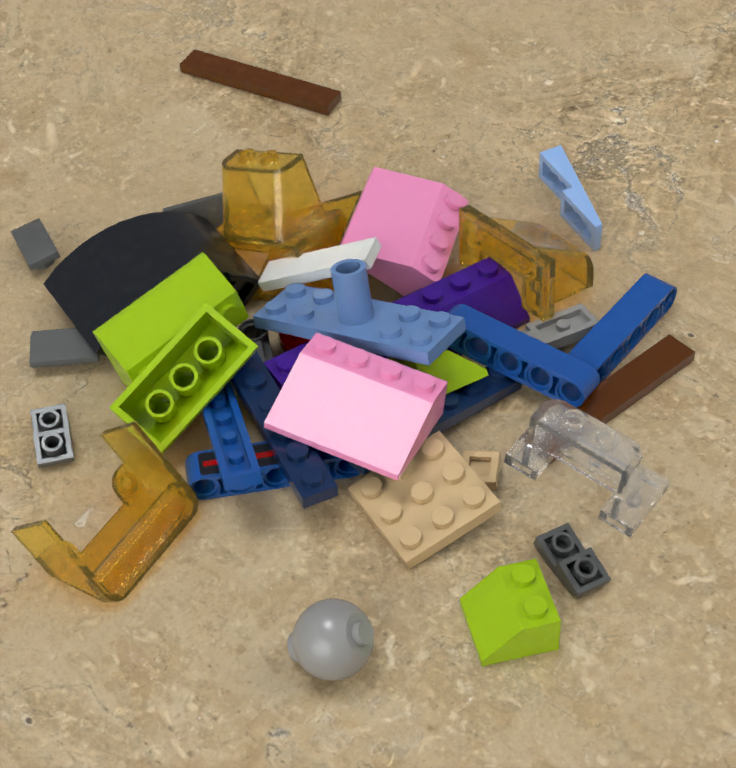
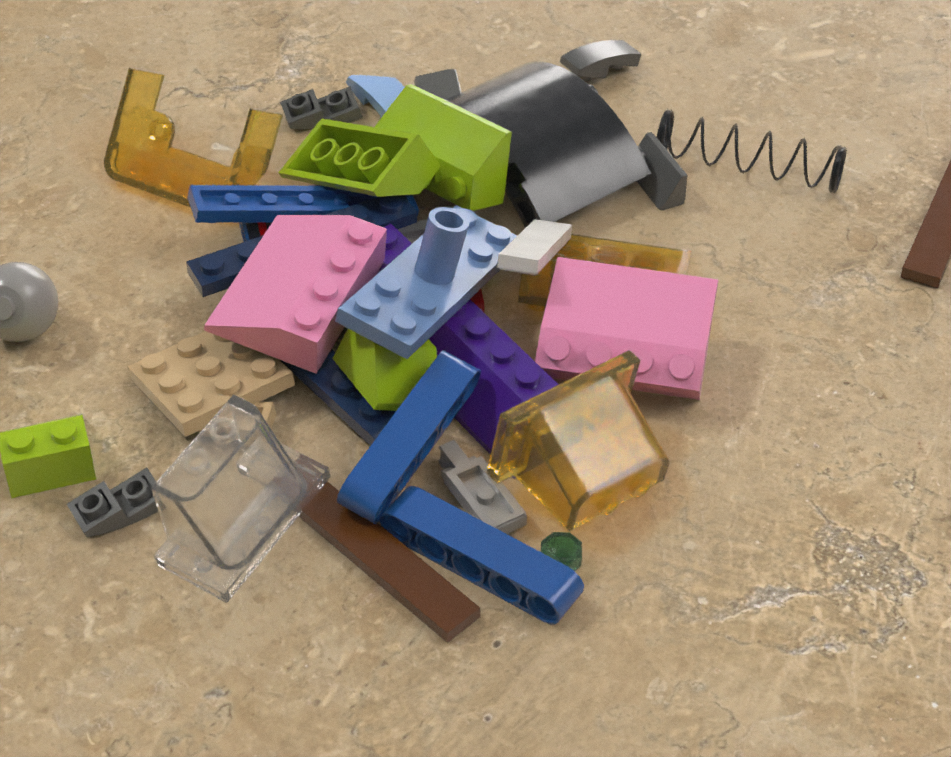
camera: 85 degrees right, 0 degrees up
(44, 387) = (375, 89): none -> light blue slope
(207, 126) = (665, 131): none -> black piece
(271, 203) = (647, 186): clear yellow windscreen -> none
(575, 206) = (730, 514): light blue slope -> none
(611, 290) = (563, 548): none -> clear green tile

